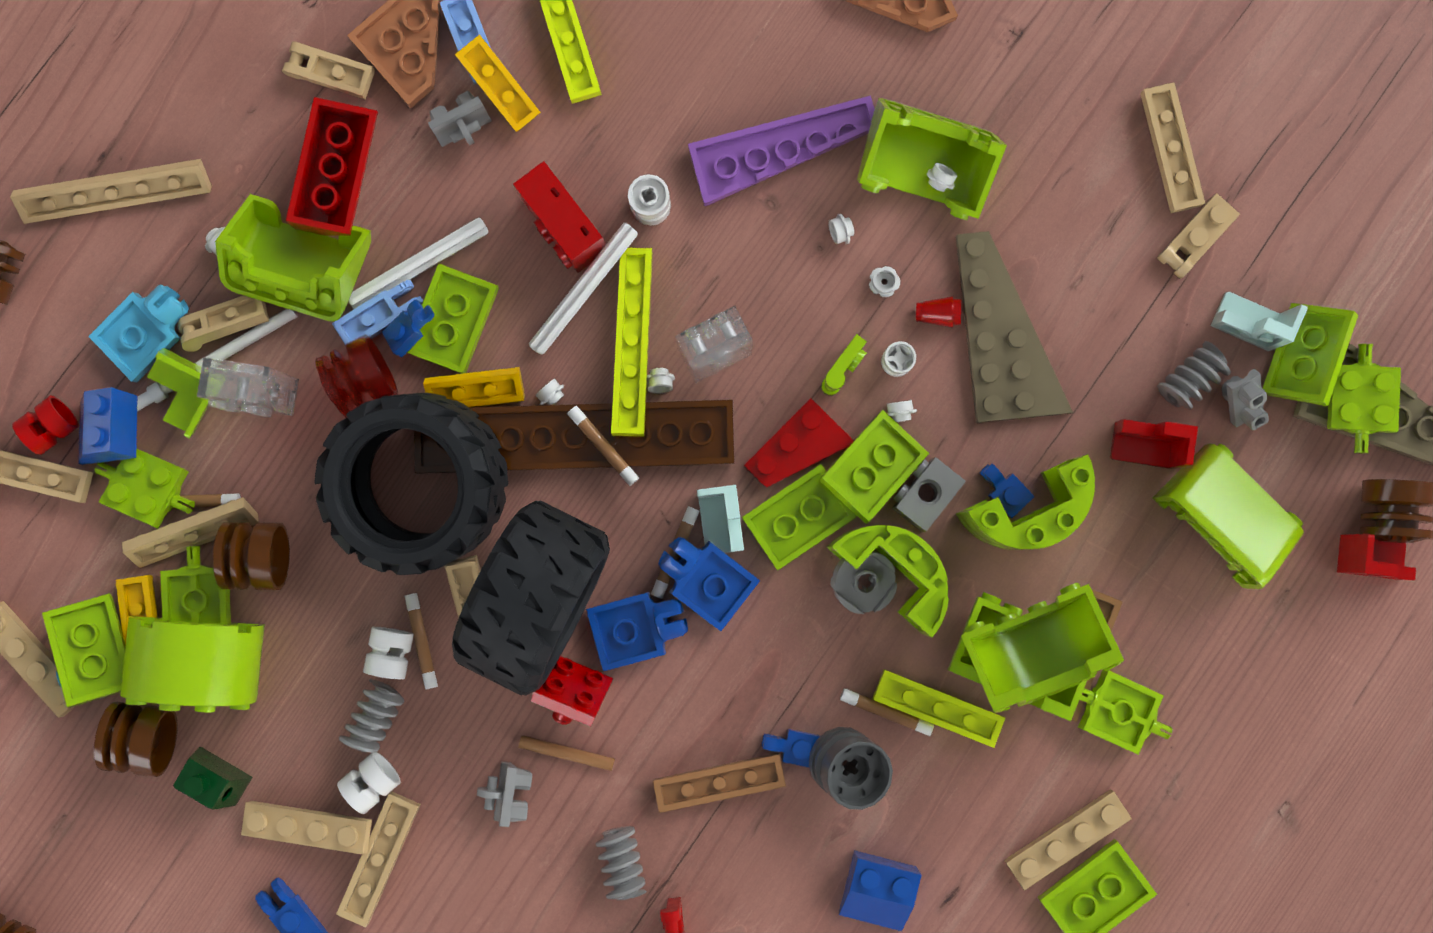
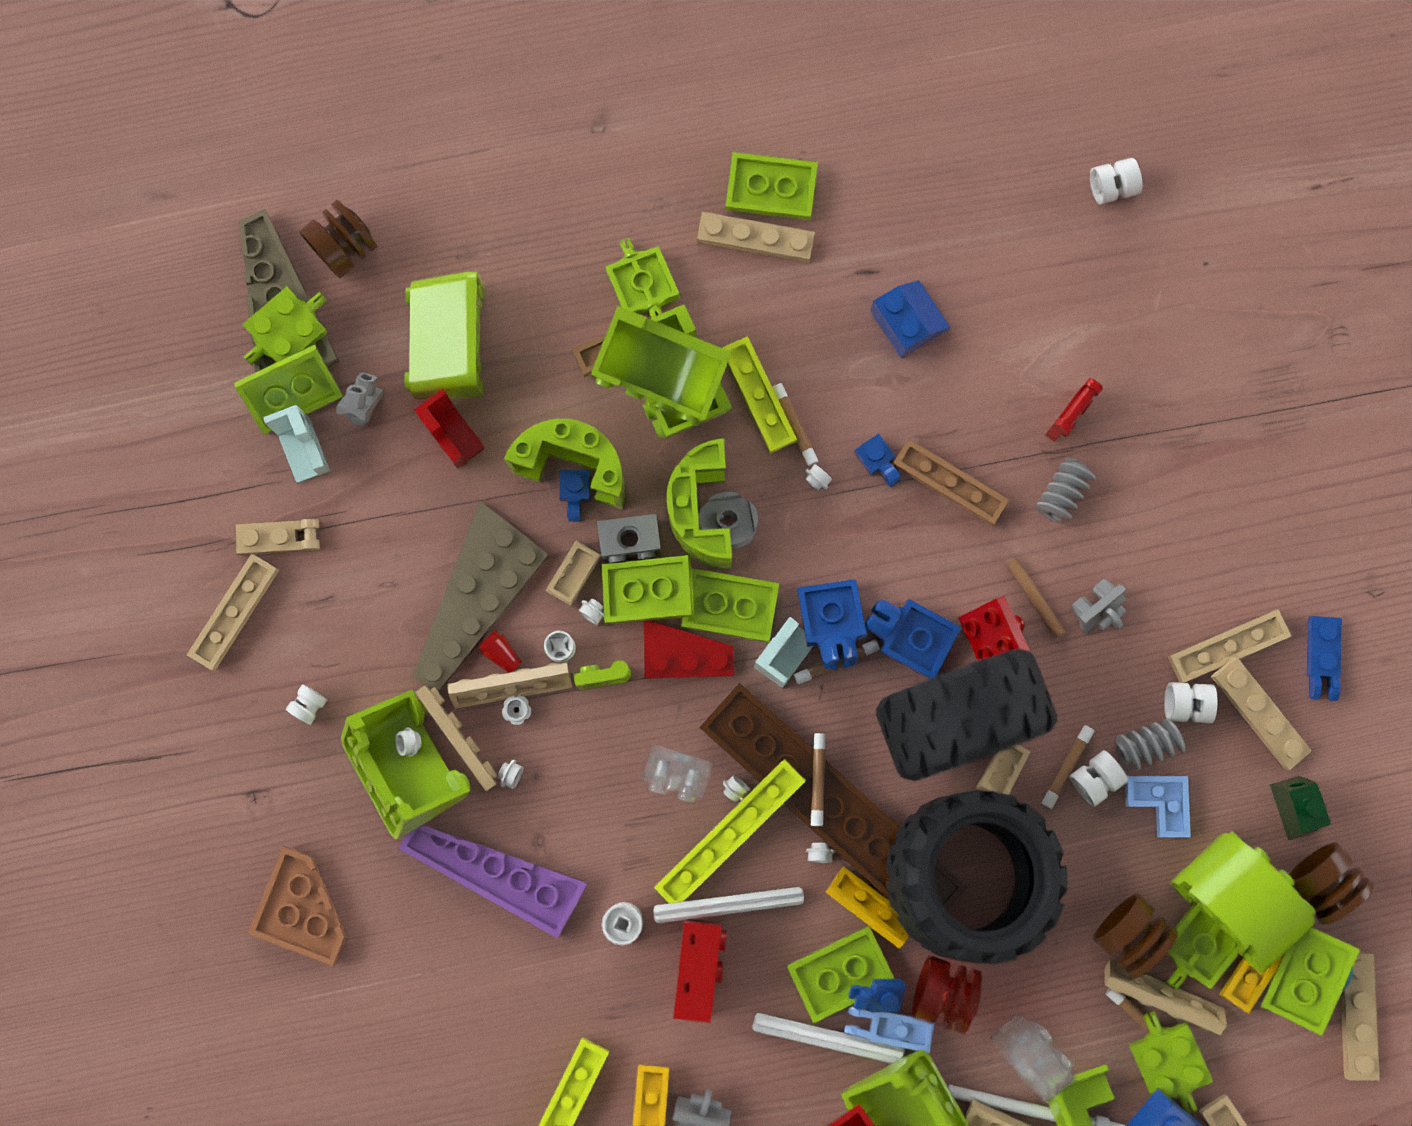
camera: 140 degrees left, 5 degrees down
(321, 690) = (1169, 797): none -> light blue plate
(827, 685) = (818, 478): none -> white plate
(863, 777) = (855, 409): dark grey wheel -> none
(912, 286) = (501, 686): none -> tan plate
(920, 218) = (450, 726): none -> tan plate
(944, 425) = (573, 573): none -> tan plate
(1046, 133) = (307, 697): none -> white wheel
(1194, 376) = (377, 446): light grey piece -> none
(1369, 557) = (385, 224): red panel -> none

